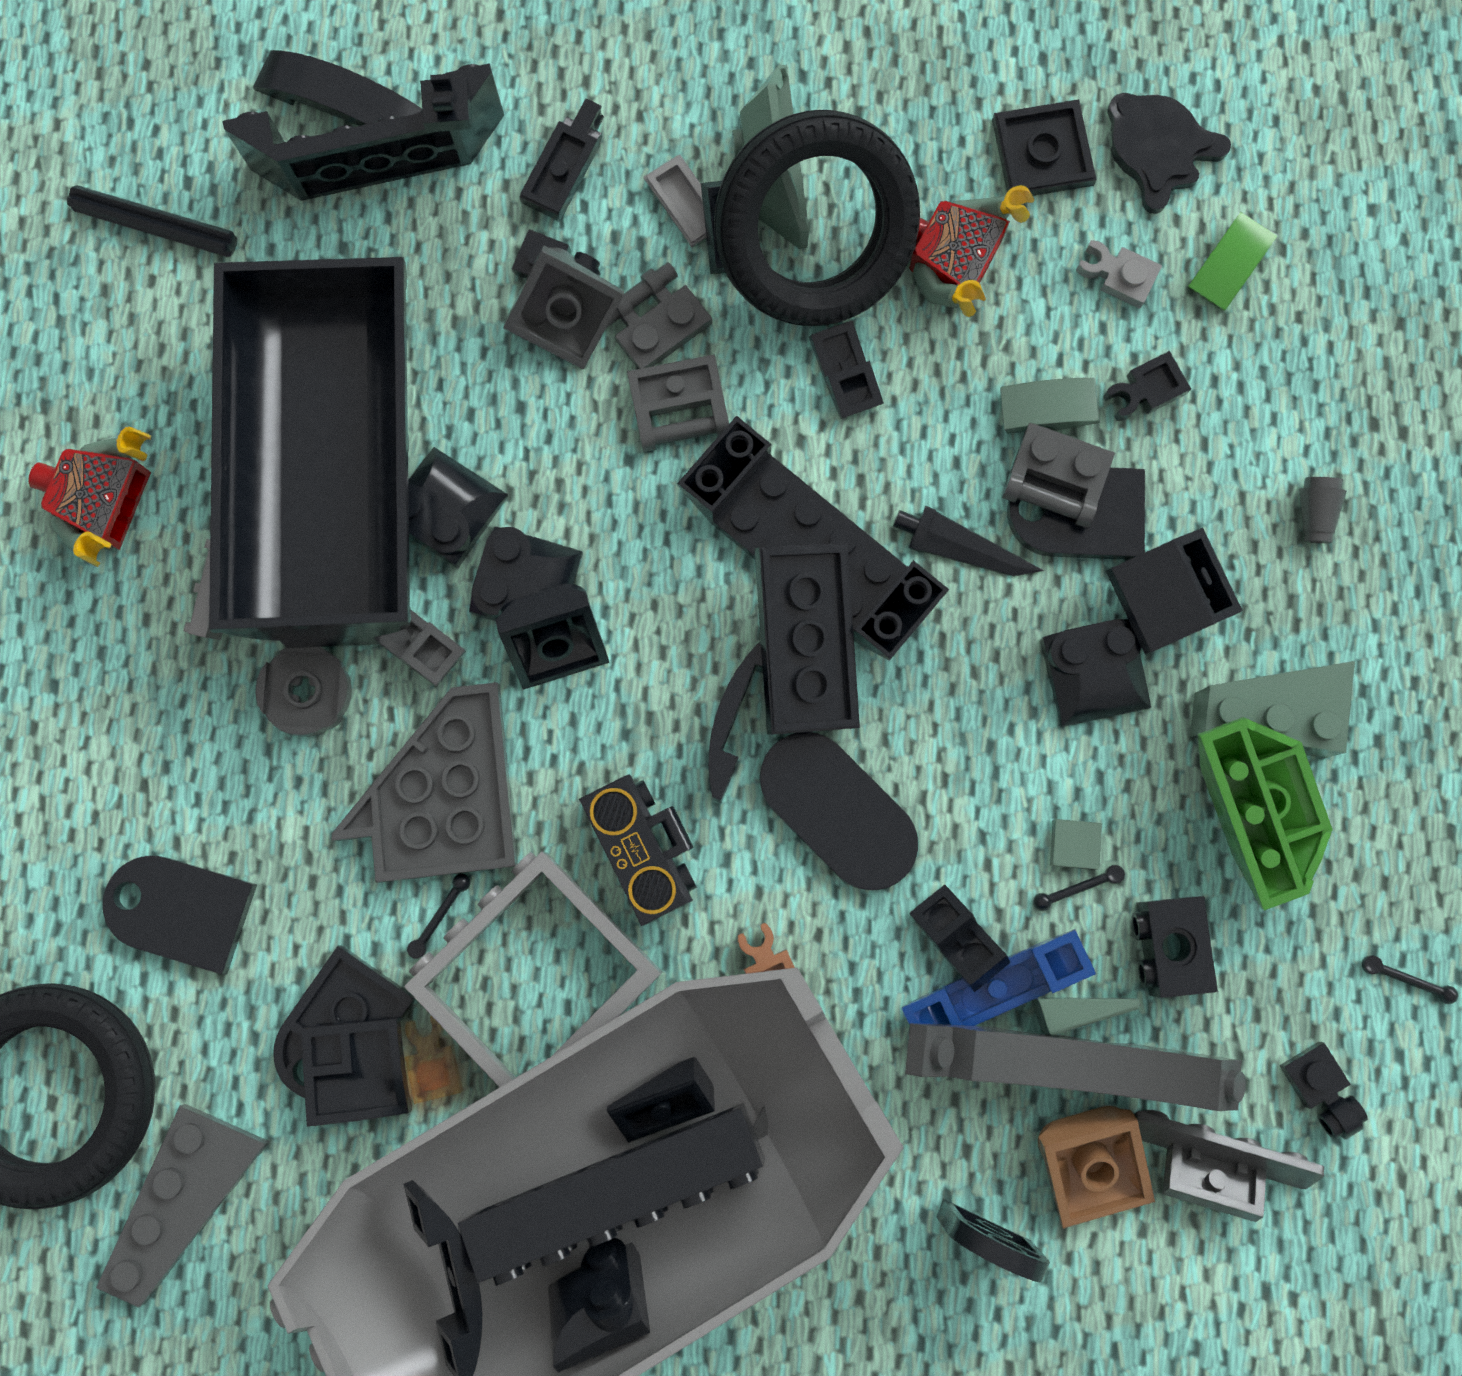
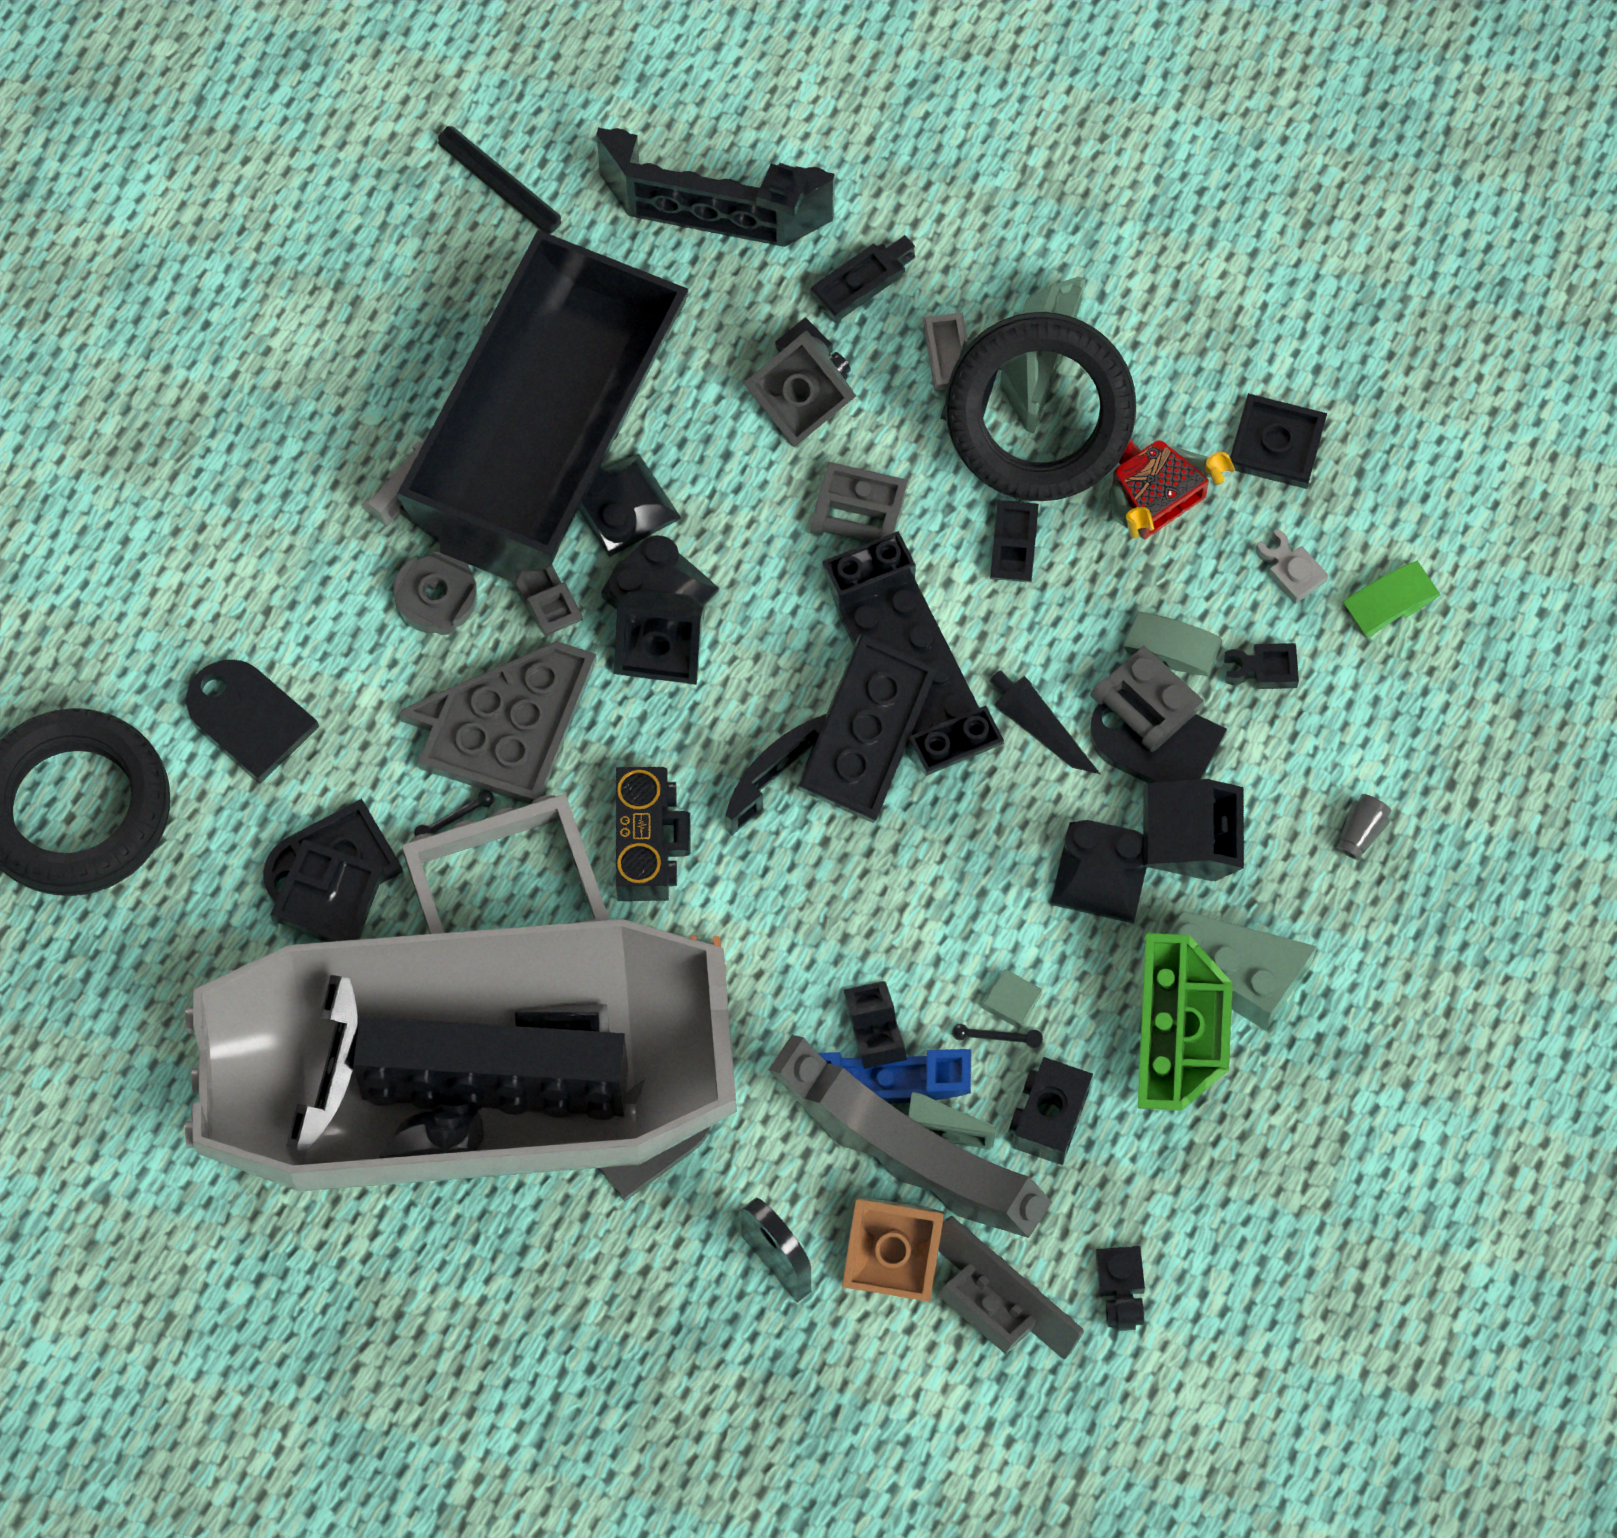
camera: 25 degrees right, 15 degrees down
(94, 492) = (348, 365): torso -> none
(185, 1186) = (147, 924): dark grey wing -> none
(329, 89) = (696, 138): black slope -> none
(433, 1069) = (391, 920): clear orange plate -> none
(665, 326) = (879, 442): dark grey plate -> none
(838, 811) = (826, 883): black tile -> none
(1157, 144) = (1378, 479): black tile -> none
(1374, 965) = (1217, 1211): black hinge -> none

